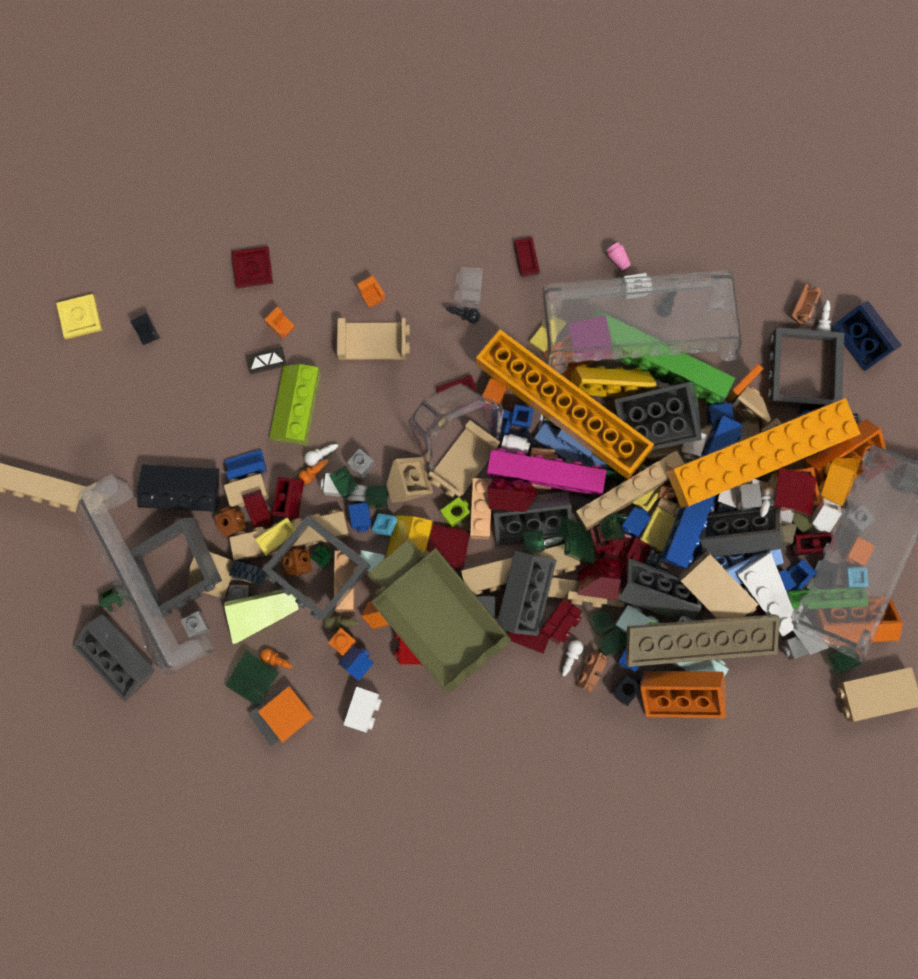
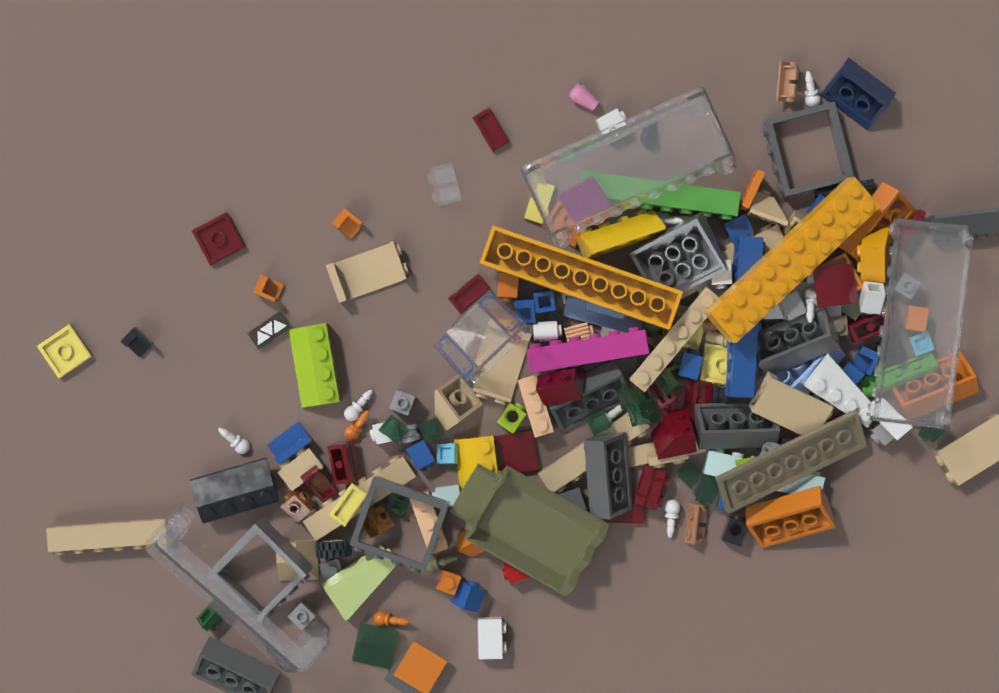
camera: 15 degrees left, 10 degrees up
(201, 453) = (240, 445): none -> white bar
(470, 315) = (457, 211): black bar -> none

